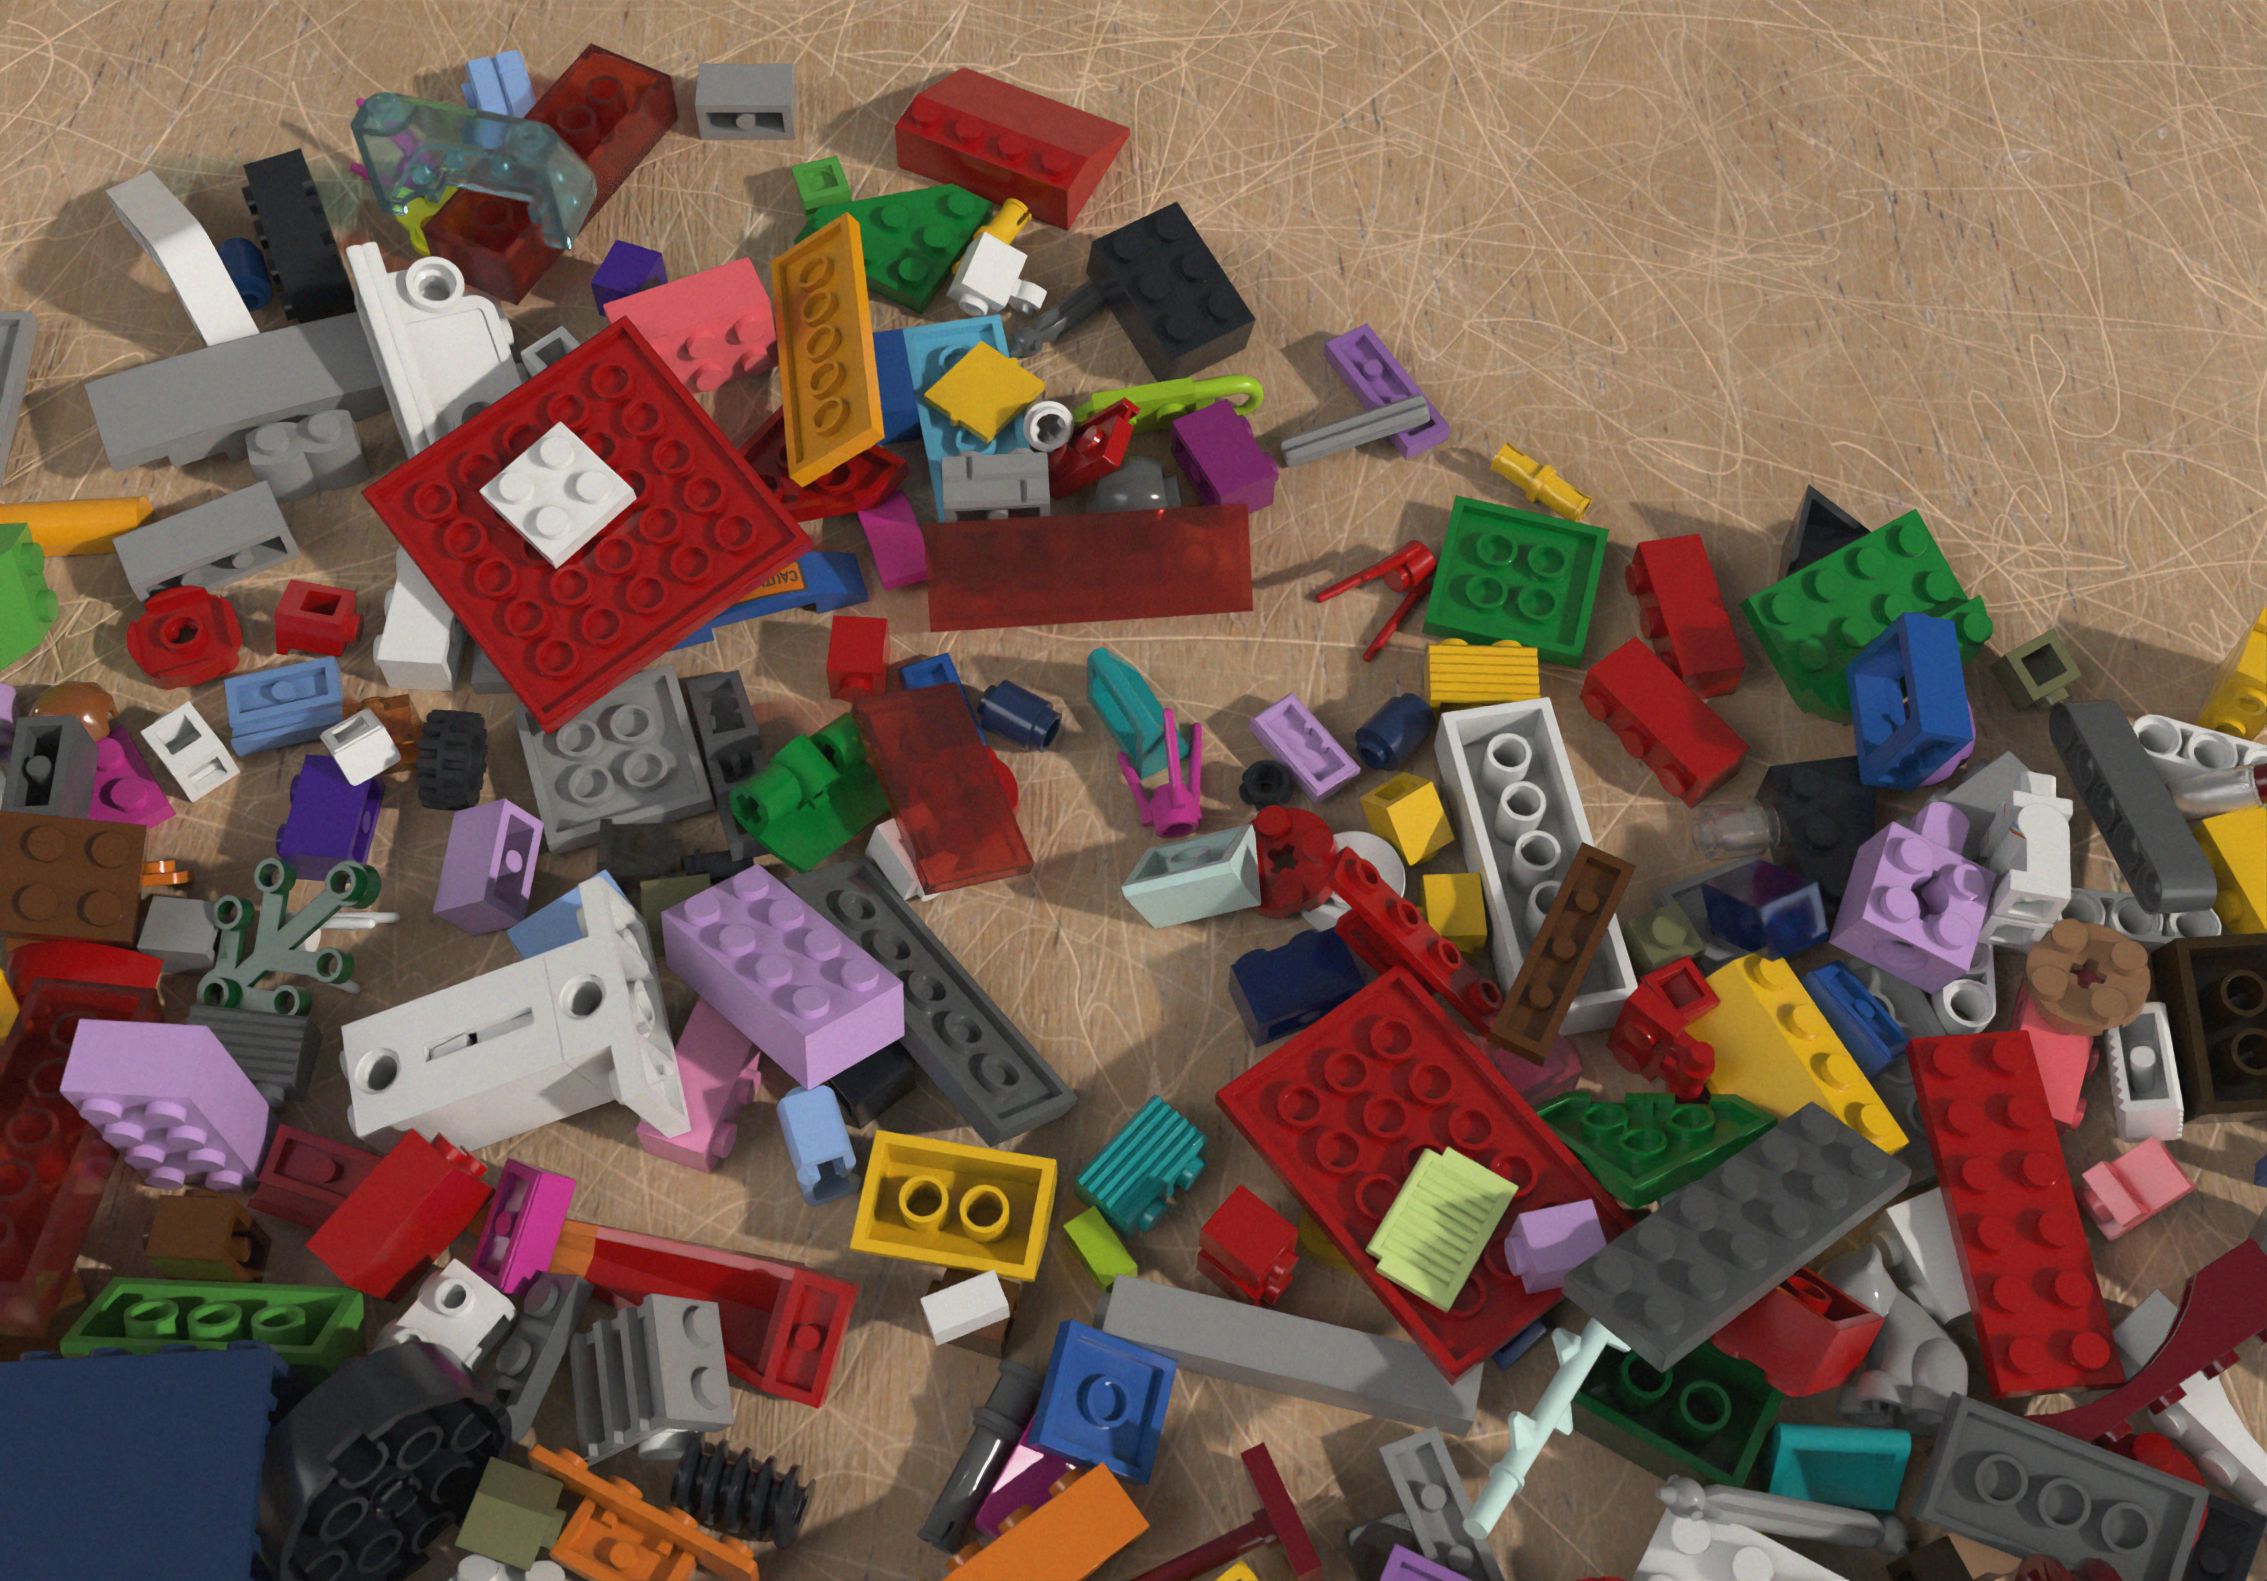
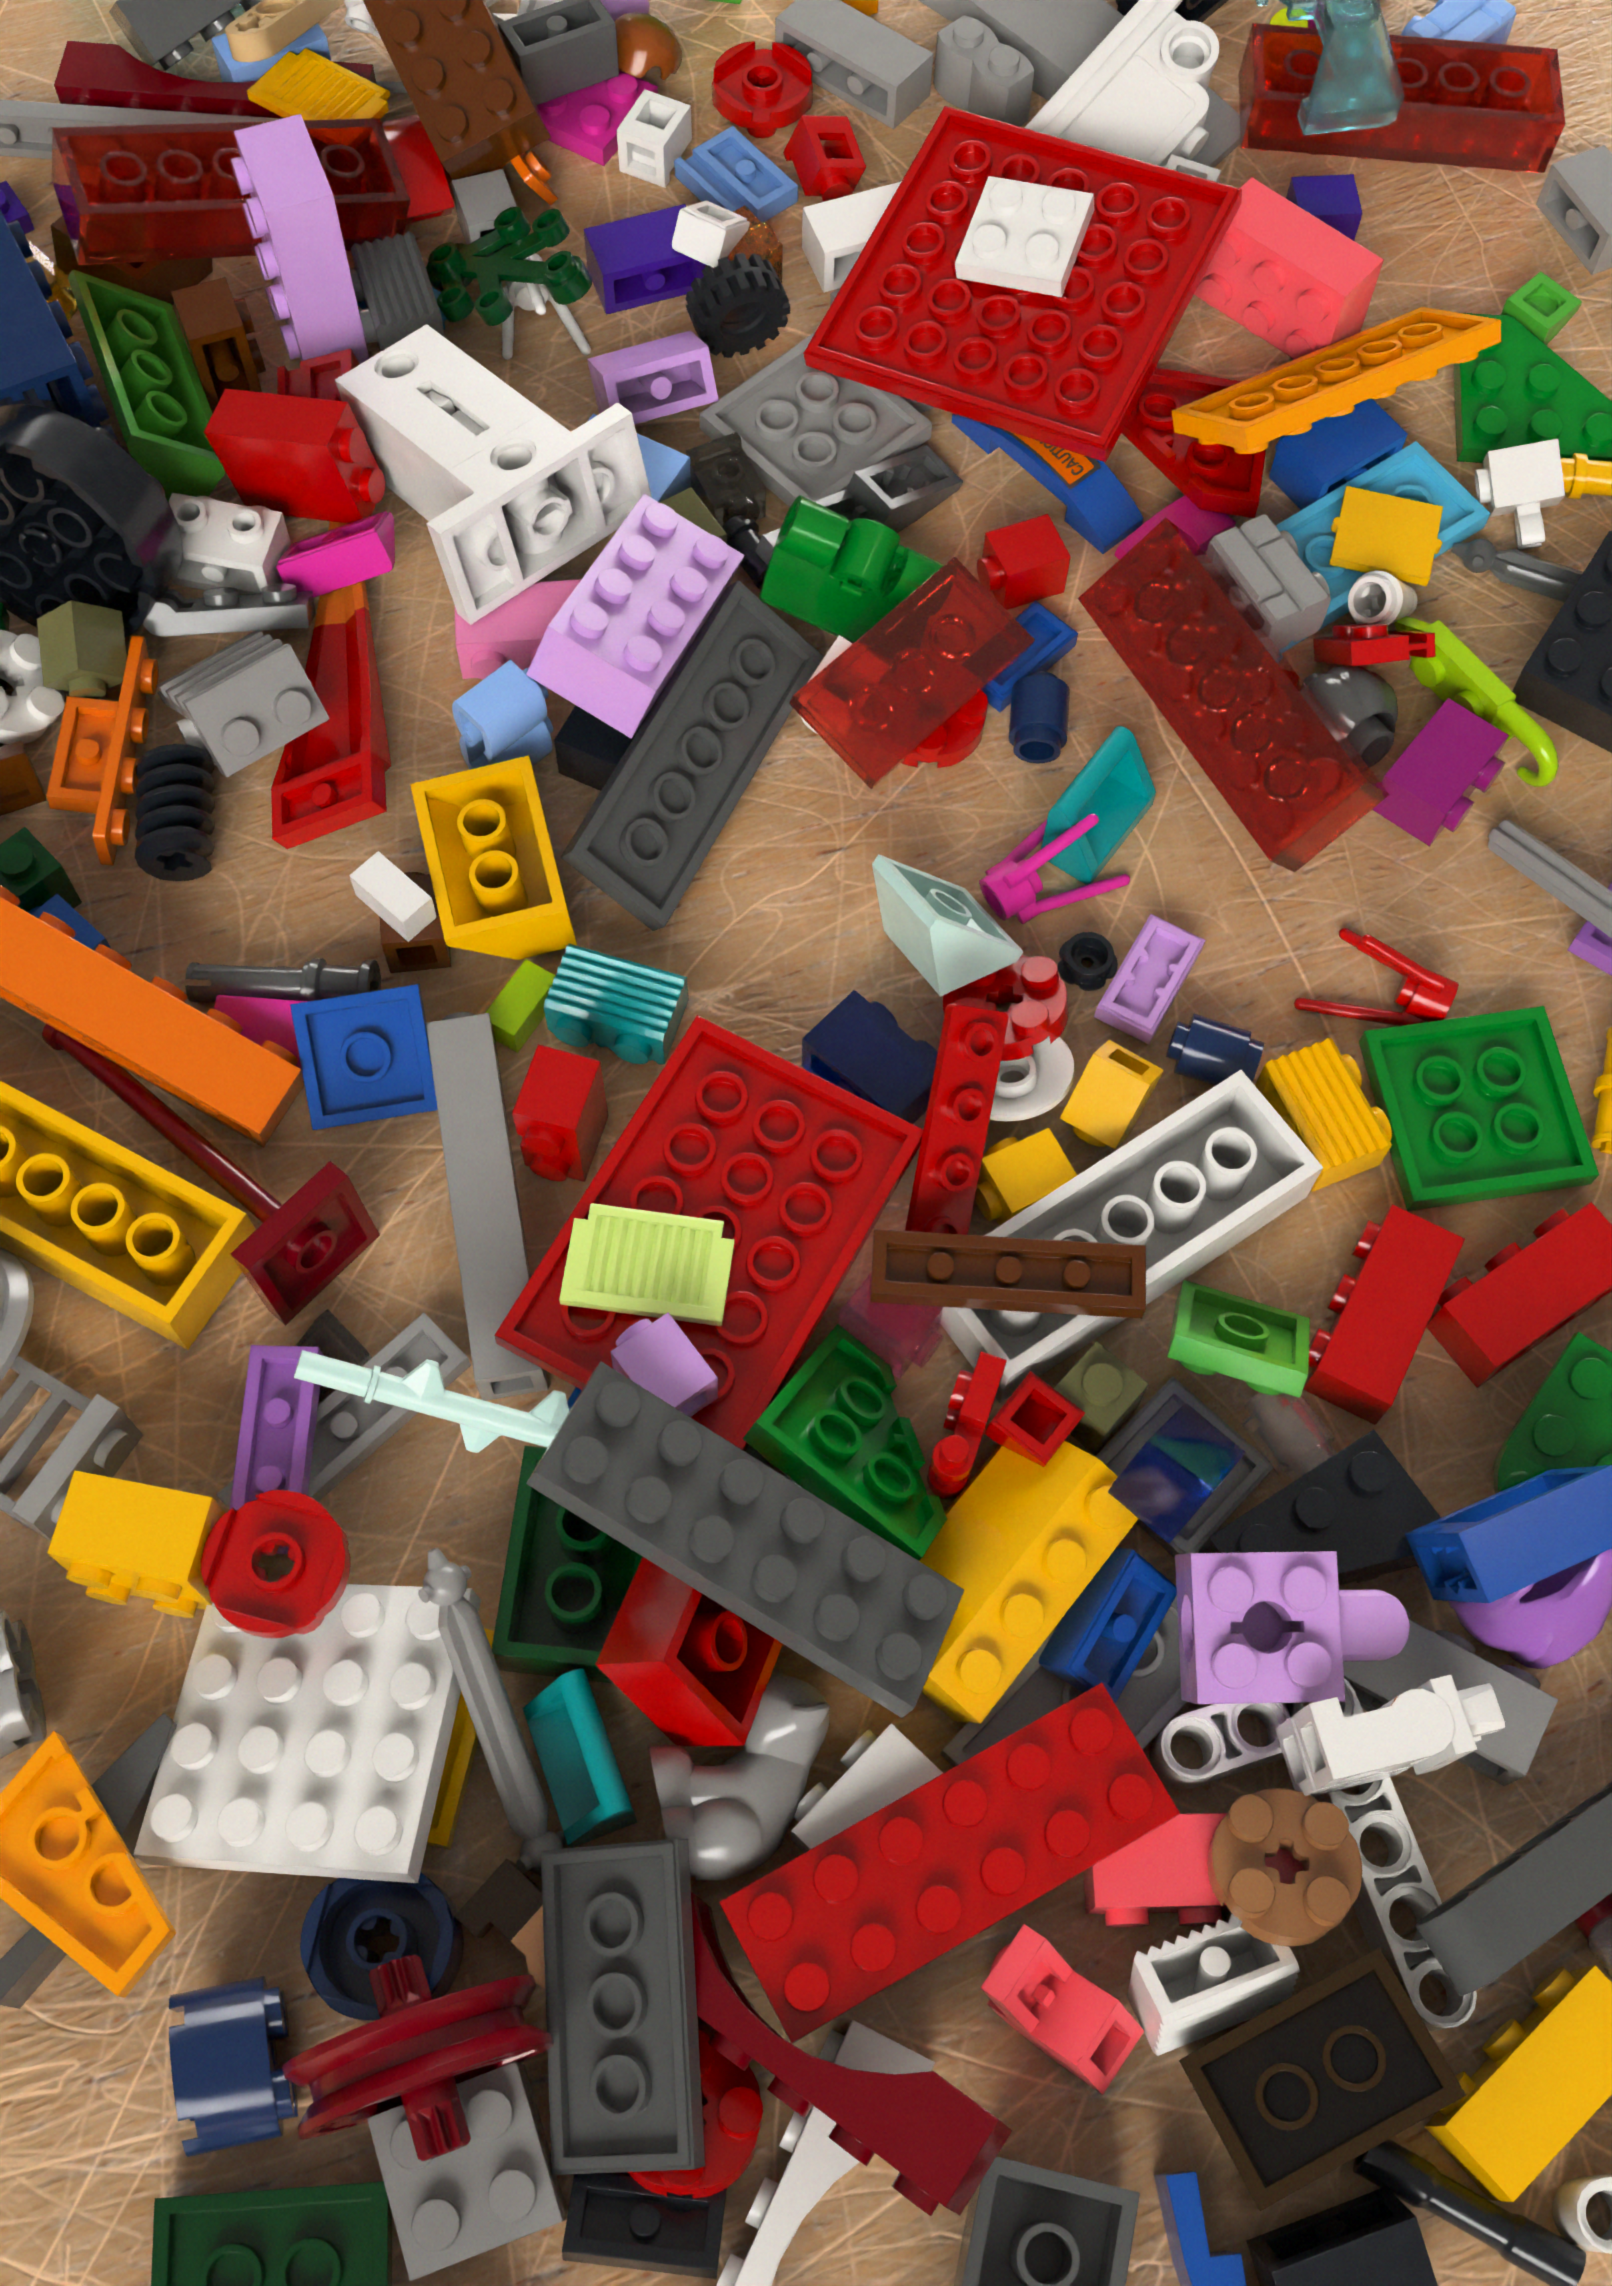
camera: 65 degrees right, 5 degrees up
(1659, 821) = (1240, 1340): none -> bright green plate

